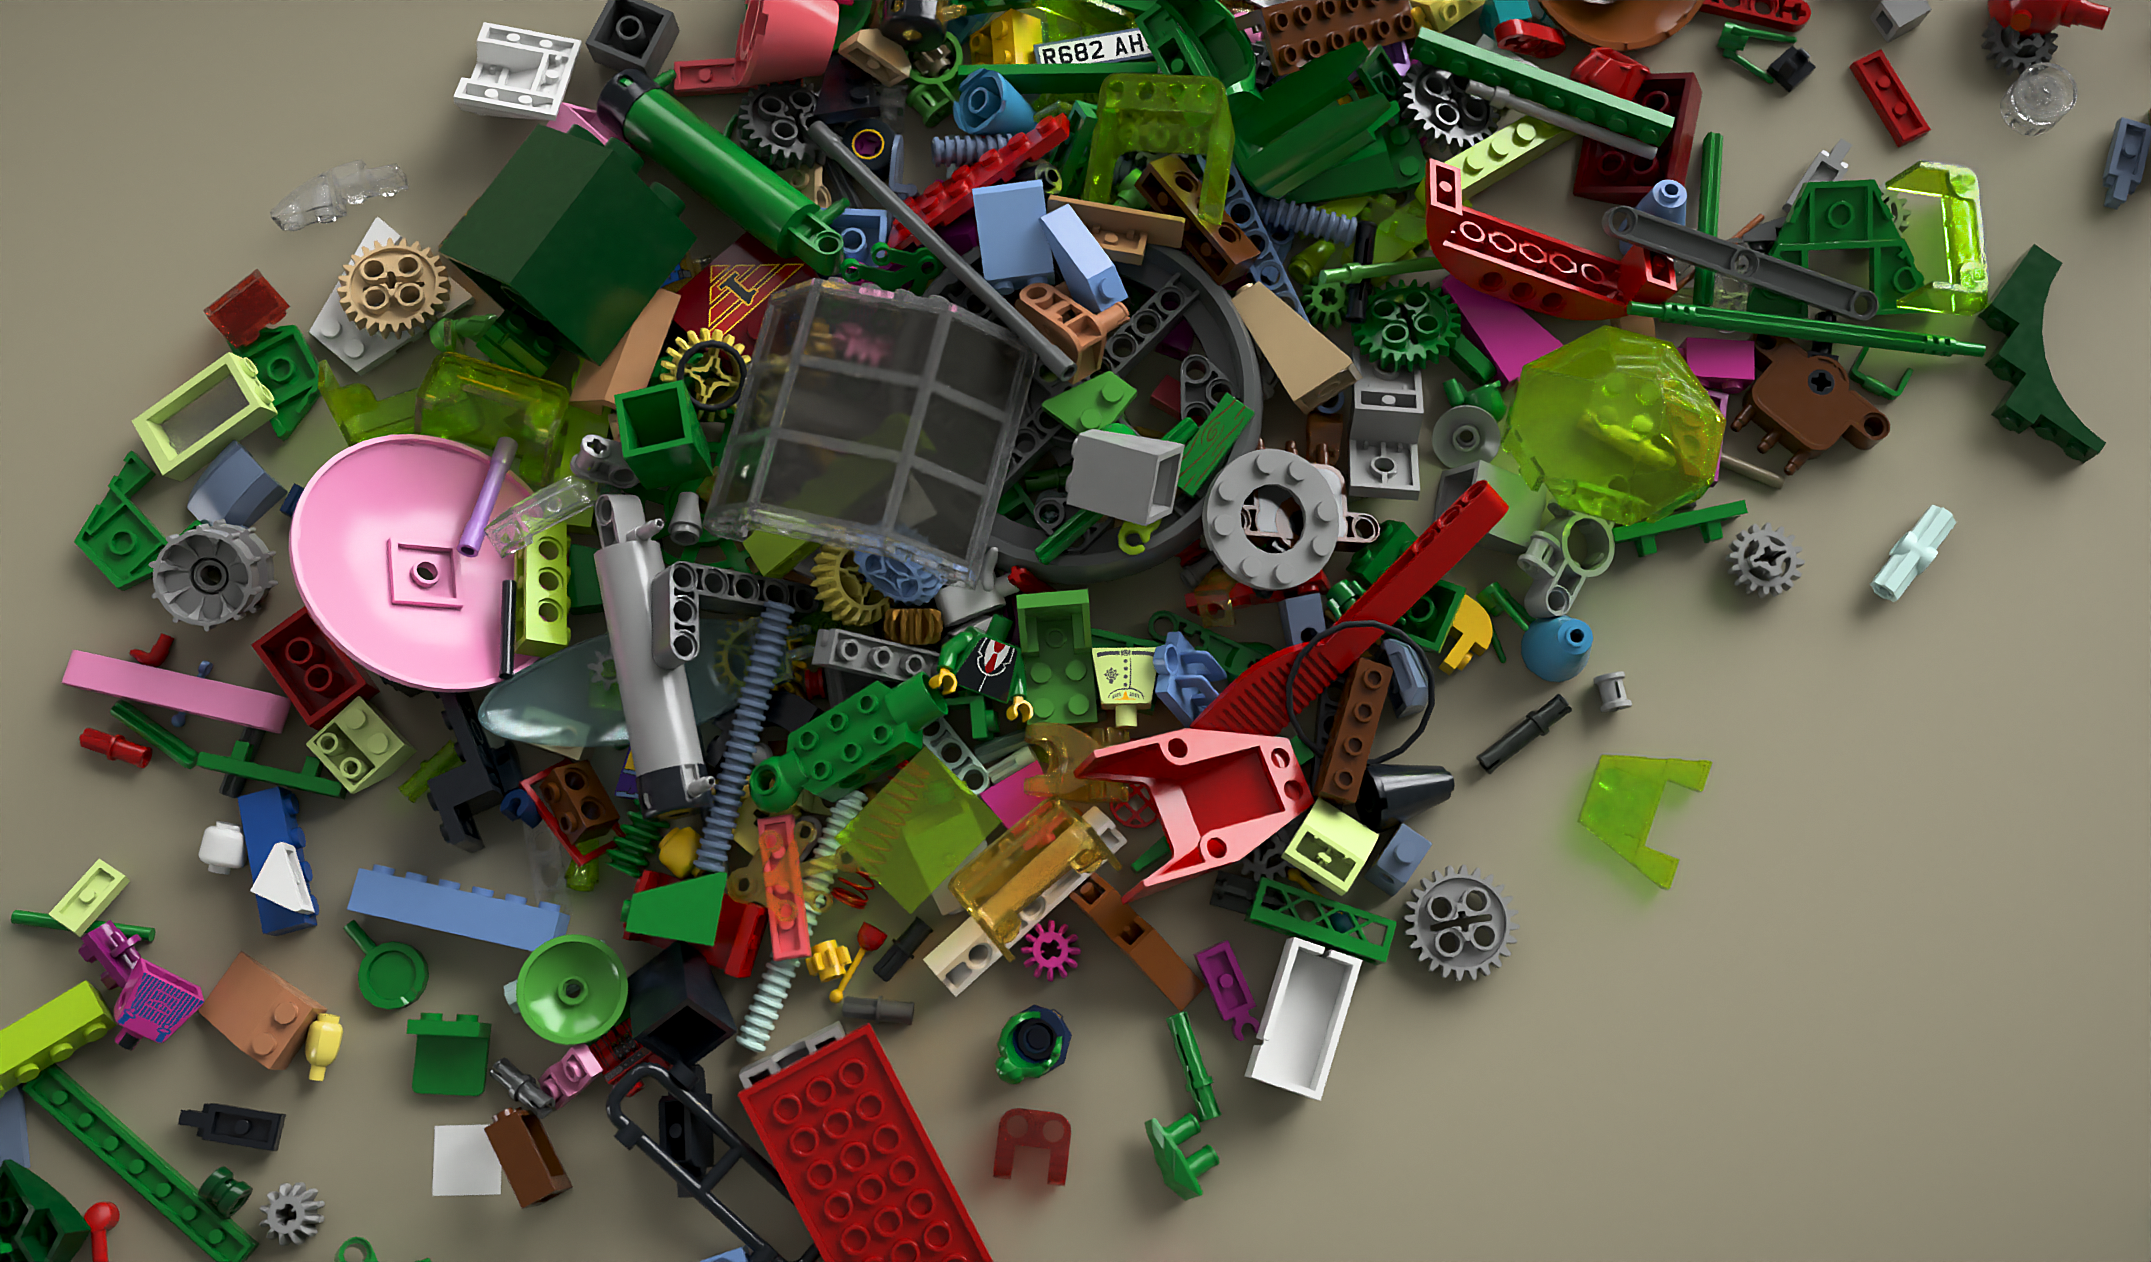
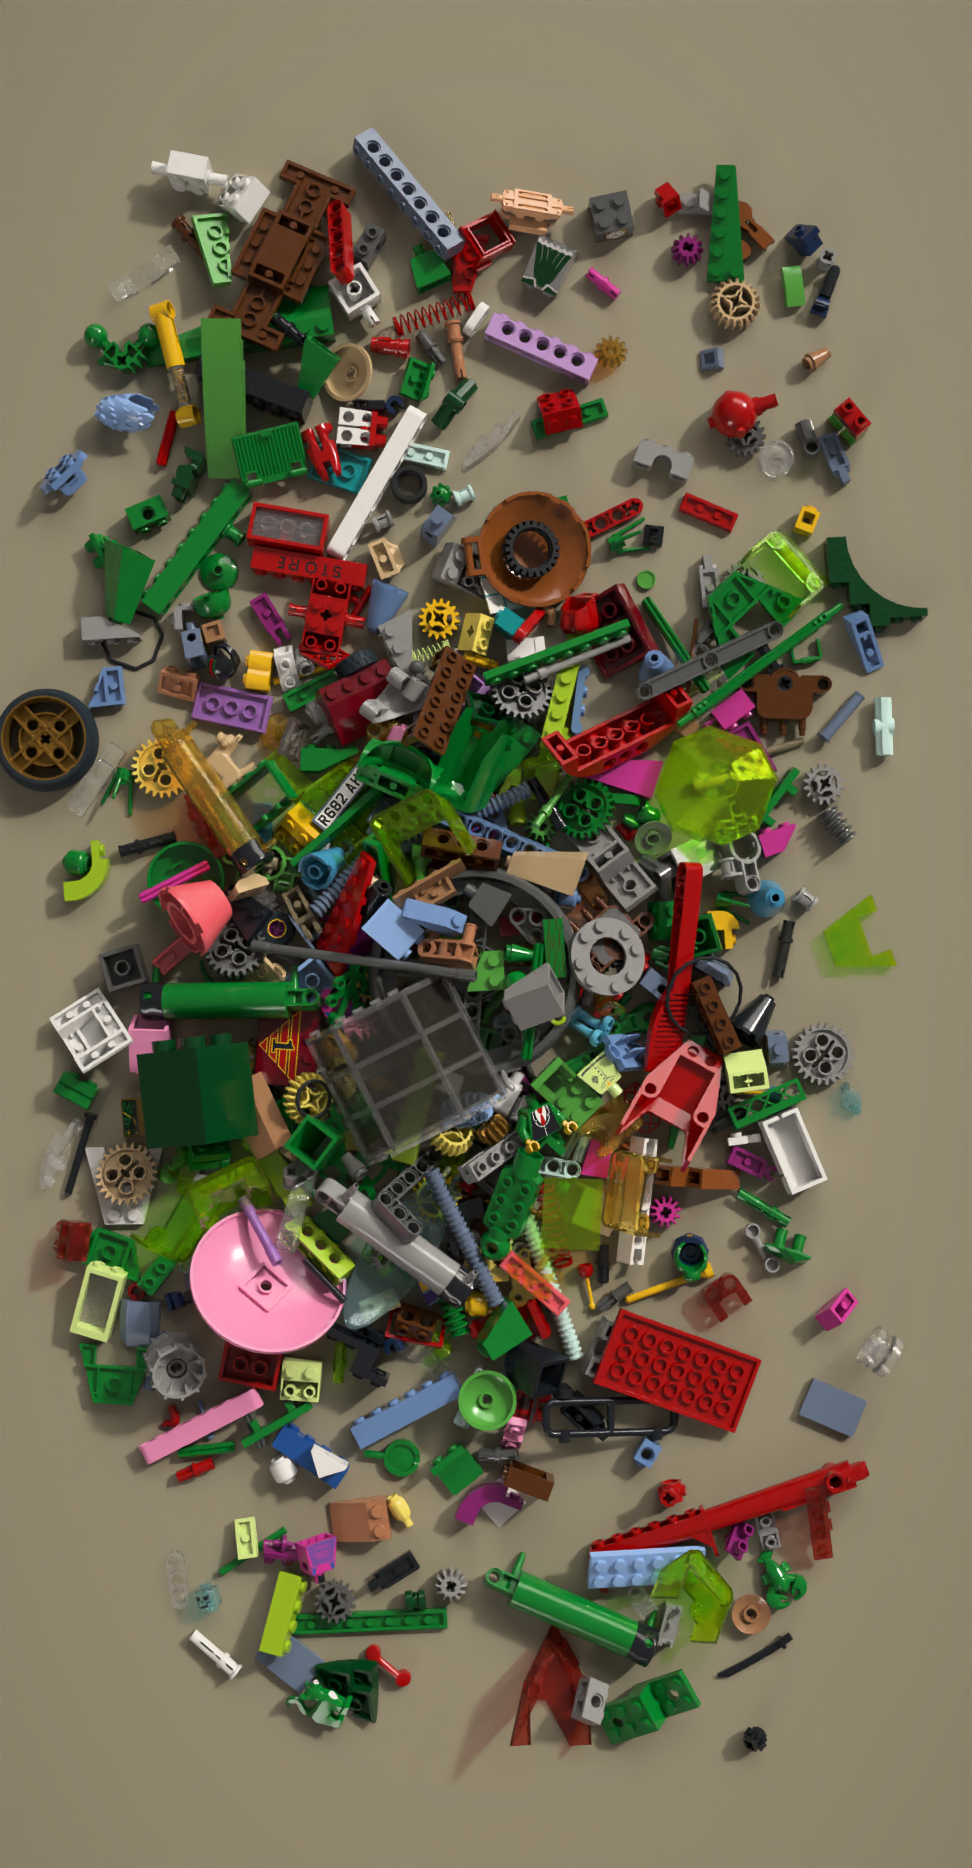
camera: 40 degrees left, 10 degrees up
(105, 1085) = (326, 1598): none -> dark grey gear
(262, 441) = (135, 1296): none -> red bush
(306, 447) = (157, 1274): none -> green brick
(365, 218) = (90, 1117): none -> black bar
(434, 137) = (77, 1090): none -> green brick
(463, 1131) = (485, 1494): none -> magenta arch
(828, 961) = (577, 1295): yellow gear -> none
(915, 146) = (298, 905): none -> dark tan hinge
(1027, 581) = (526, 1070): red axle -> none
(1034, 1087) = (708, 1272): none -> yellow piece
(1134, 1155) = (769, 1263): none -> light grey bar
(1152, 411) = (516, 953): none -> green cone
(1172, 308) = (487, 901): none -> dark grey torso
(1177, 618) = (601, 1027): none -> medium azure piece
(1240, 938) = (737, 1138): none -> white plate
(1243, 618) = (623, 1001): none -> green arm
(1284, 419) = (566, 901): none -> medium blue head
(1433, 405) = (625, 833): none -> red animal
(1437, 491) = (661, 875): none -> dark grey piece
(1447, 1022) = (850, 1099): none -> clear light blue piece
(1526, 179) = (580, 693): none -> medium blue plate
(1570, 58) = (551, 615): none -> medium nougat arm
(1635, 578) = (775, 841): none -> dark pink slope
(1734, 115) = (646, 579): none -> bright green piece
(1737, 629) = (837, 826): none -> dark grey piece
(1862, 494) = (841, 716): none -> sand blue pin
(1977, 419) = (863, 640): none -> medium blue slope
(2019, 207) = (803, 528): none -> yellow brick
(2105, 110) = (807, 438): none -> dark grey piece

